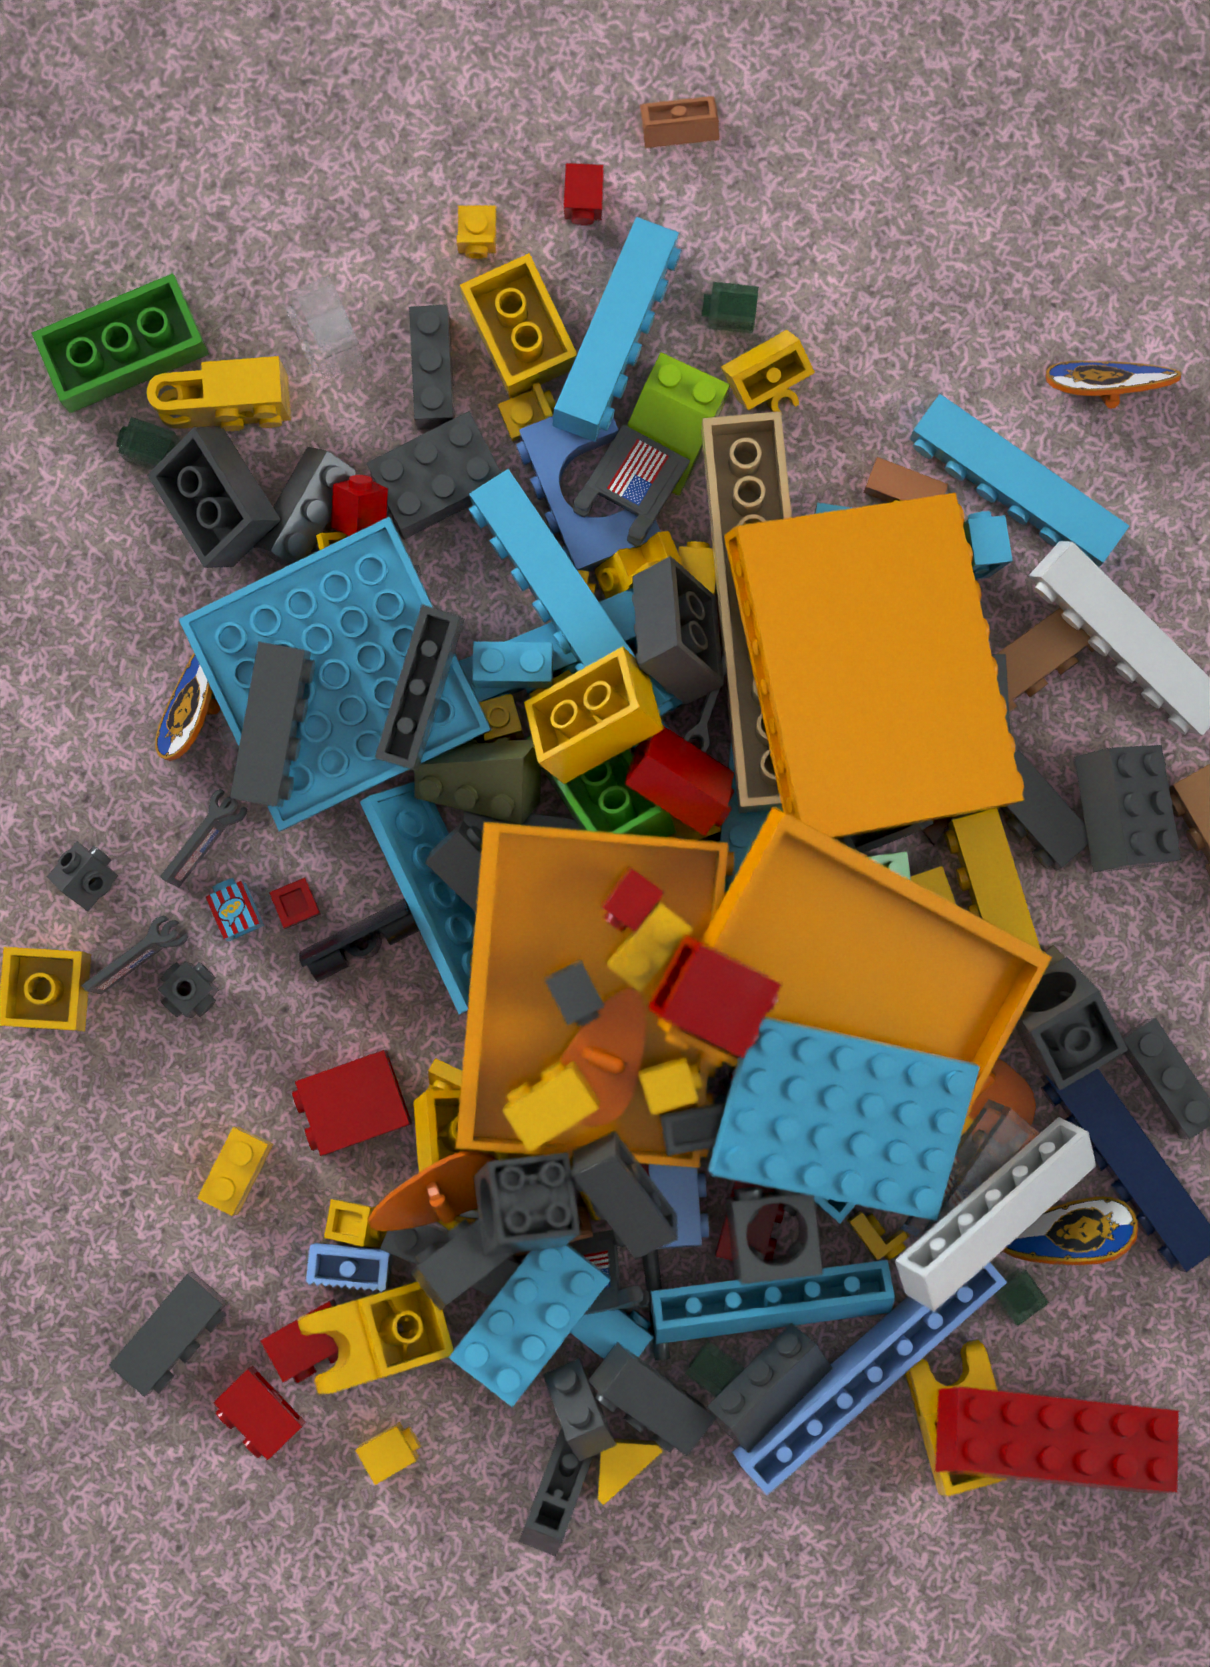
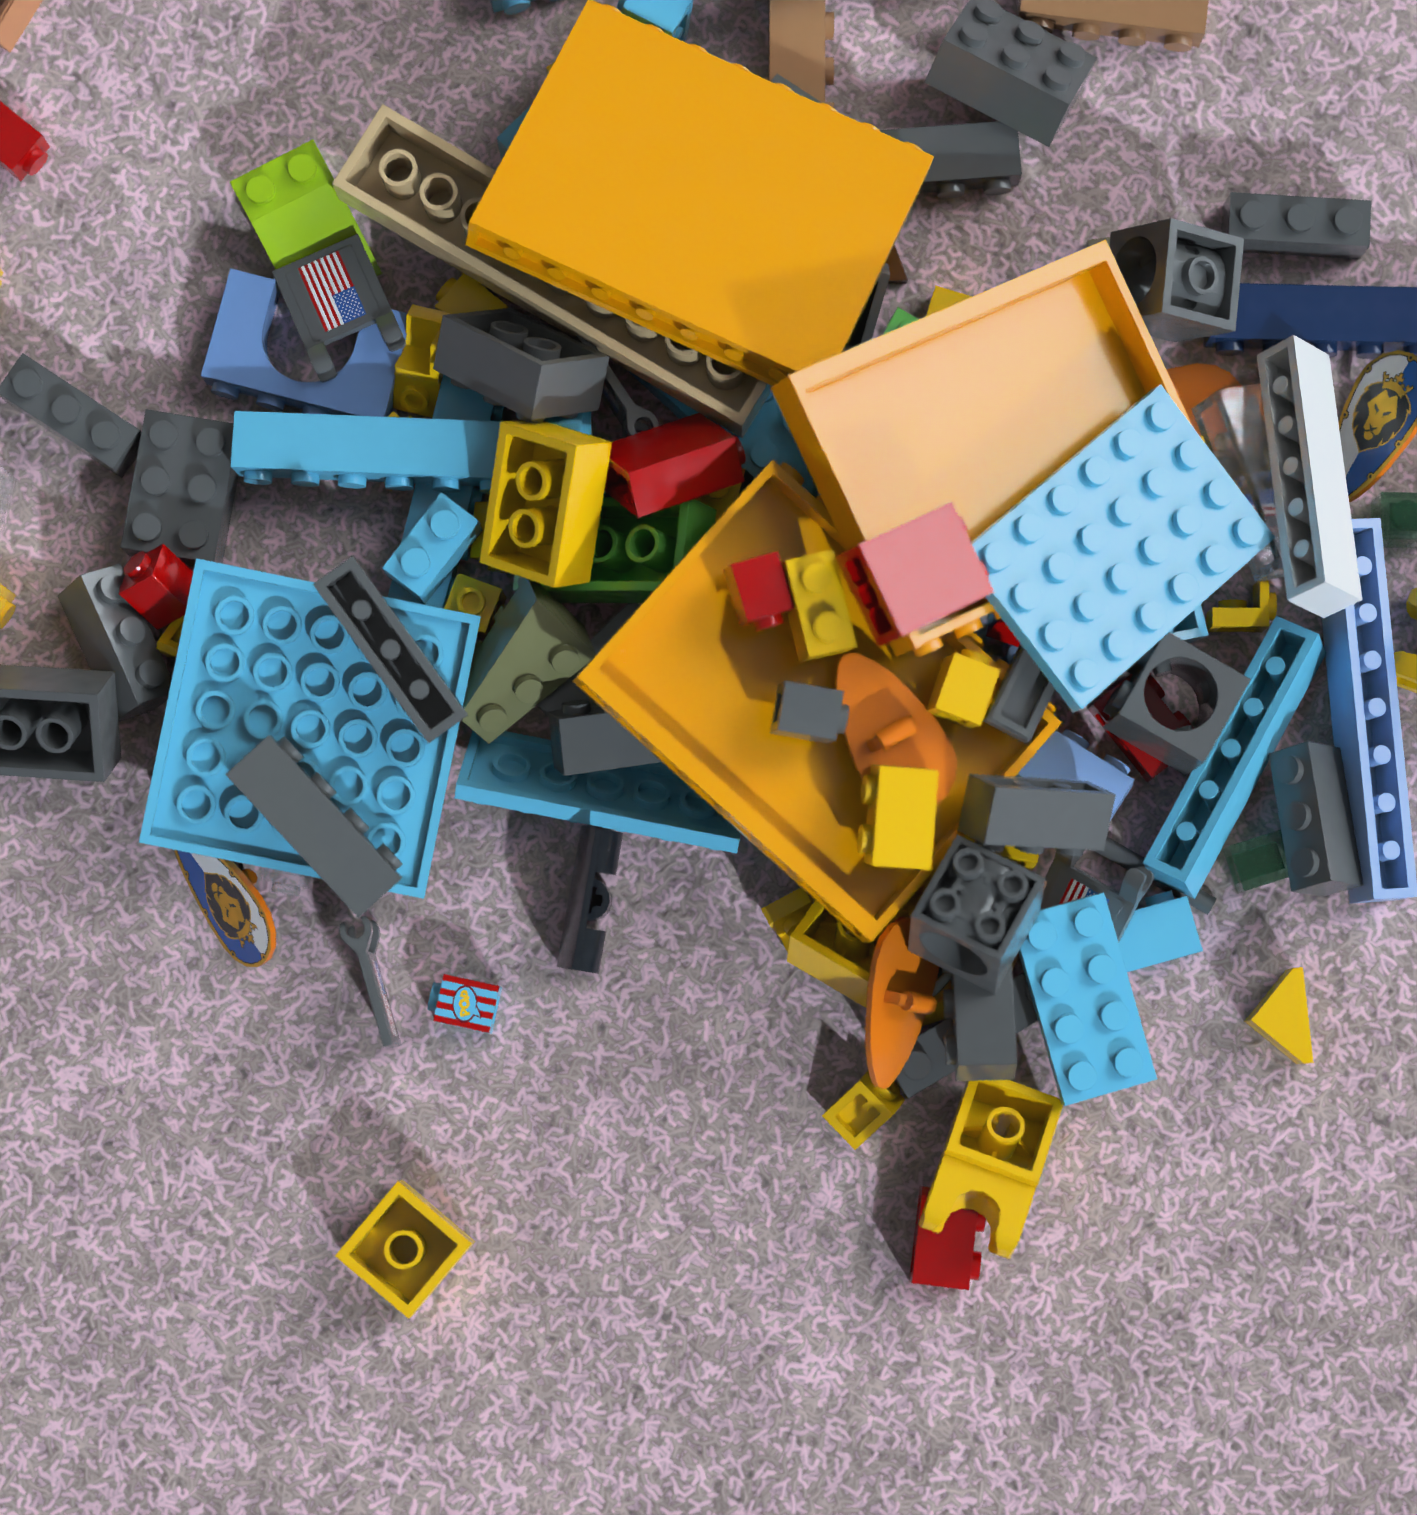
camera: 60 degrees left, 0 degrees up
(83, 875) = (319, 1127): dark grey brick -> none
(136, 955) = (441, 1102): dark grey flag -> none
(170, 1335) = (840, 1371): dark grey brick -> none
(202, 991) = (531, 1101): dark grey brick -> none
(235, 1171) = (725, 1189): yellow brick -> none
(258, 1414) = (981, 1339): red brick -> none
(295, 903) = (503, 939): red plate -> none
(349, 1267) = (903, 1143): light blue brick -> none
(351, 1103) = (743, 1026): red brick -> none
(389, 1452) = (1110, 1236): yellow brick -> none
(519, 325) = (96, 300): yellow brick -> none
(526, 410) = (185, 356): yellow bracket -> none
(555, 1498) = (1266, 1095): dark grey slope -> none
(579, 1410) = (1205, 1018): dark grey brick -> none
(615, 330) = (174, 208): medium azure brick -> none
(650, 1400) = (1246, 943): dark grey brick -> none
(731, 307) = (235, 84): clear green brick -> none
(769, 372) = (328, 94): yellow brick -> none
(899, 483) = (527, 57): nougat slope -> none
(990, 874) = (972, 245): yellow brick -> none

